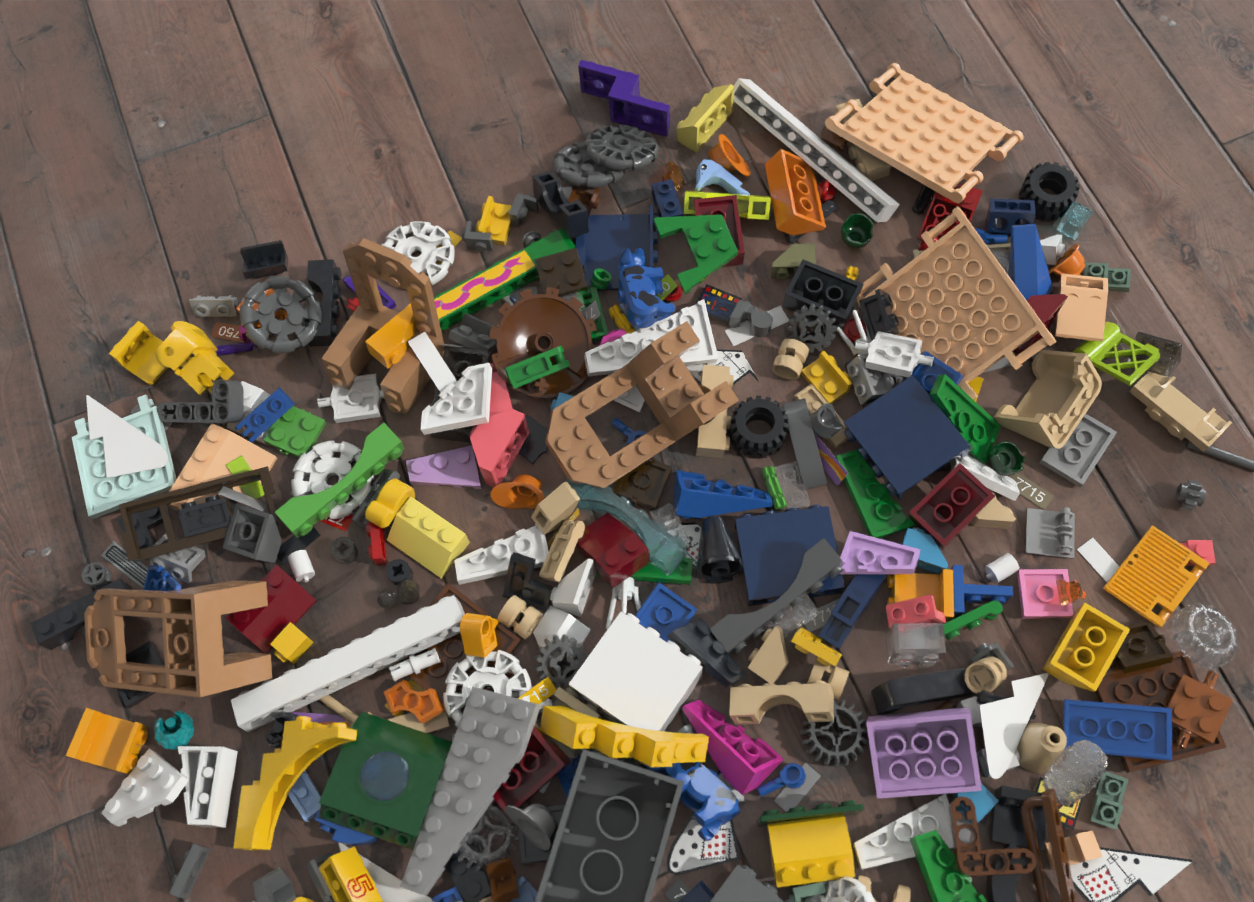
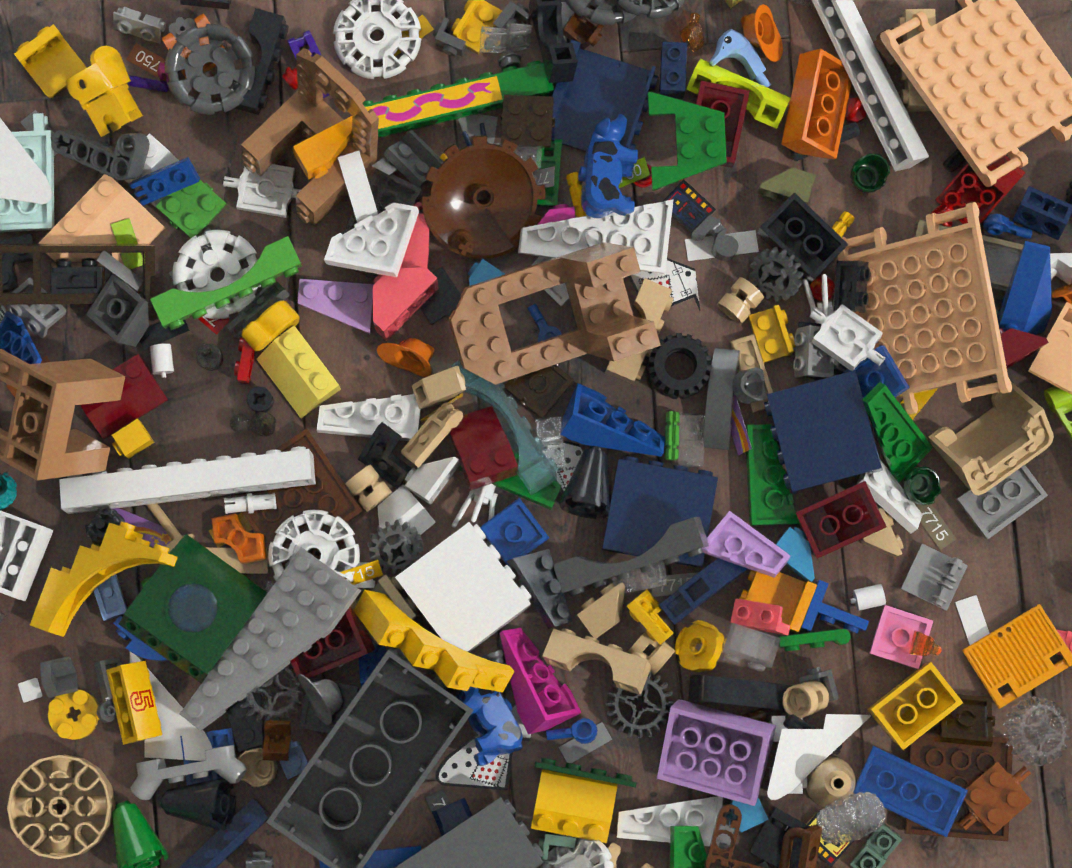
camera: 10 degrees right, 15 degrees up
(478, 634) = (321, 496): light orange piece -> none
(522, 222) = (502, 40): none -> clear slope
(536, 367) = (466, 225): green plate -> none
(600, 278) = (574, 132): green bush -> none
(881, 660) = (708, 654): none -> yellow plate

